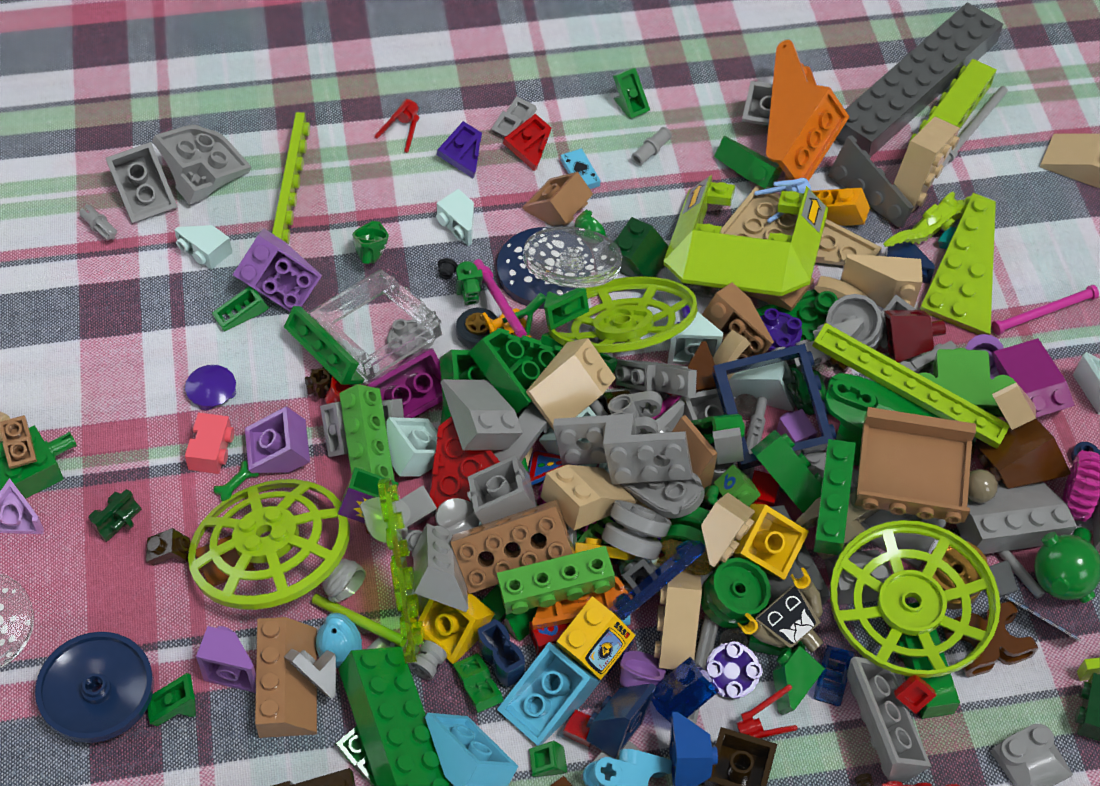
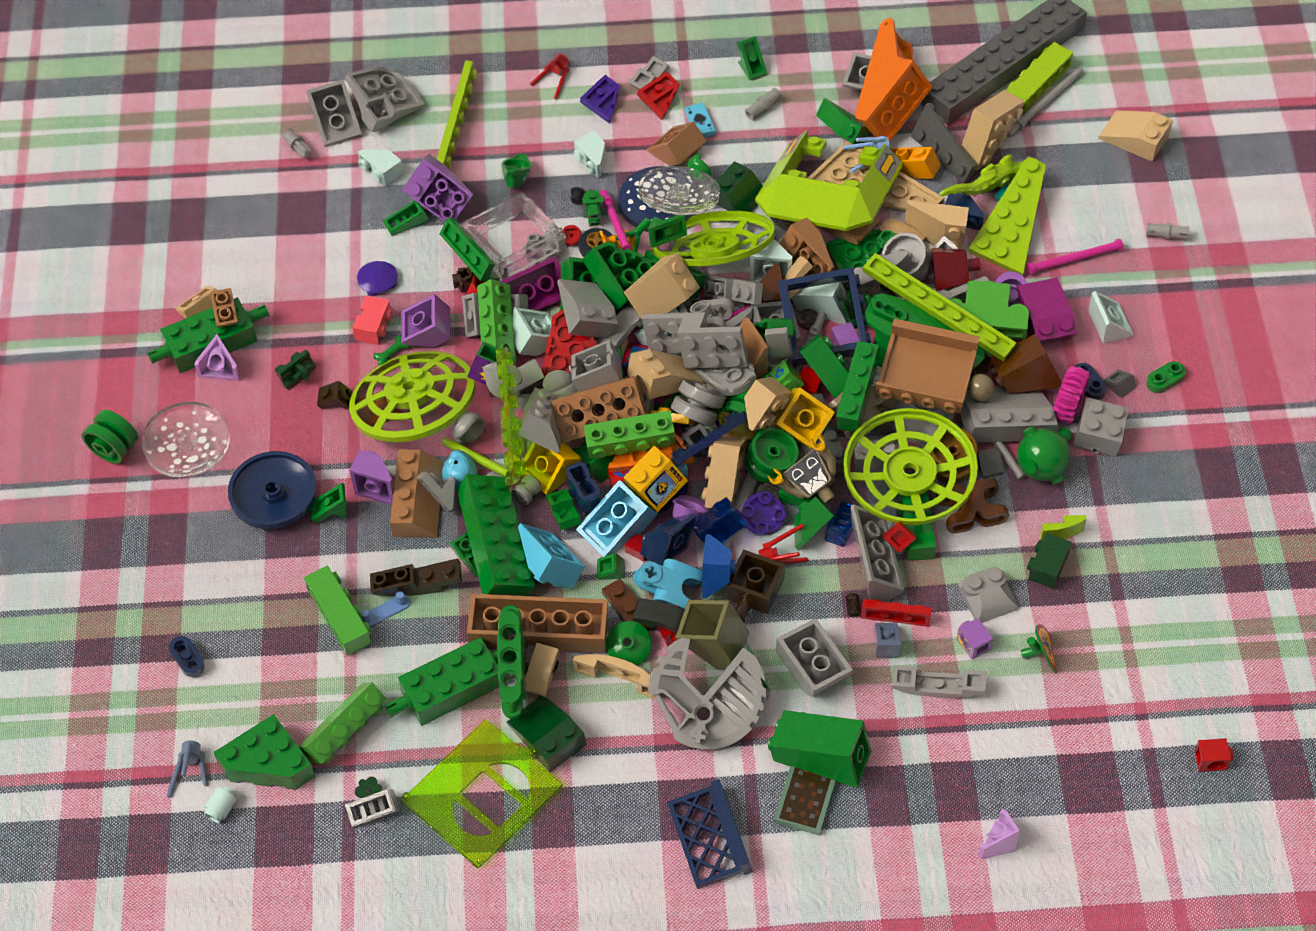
camera: 10 degrees right, 0 degrees up
(448, 318) = (572, 235): none -> red tile
(782, 328) = (844, 256): dark purple dish -> none
(1015, 405) = (1020, 326): tan slope -> none
(1043, 618) = (1018, 493): sticker -> none

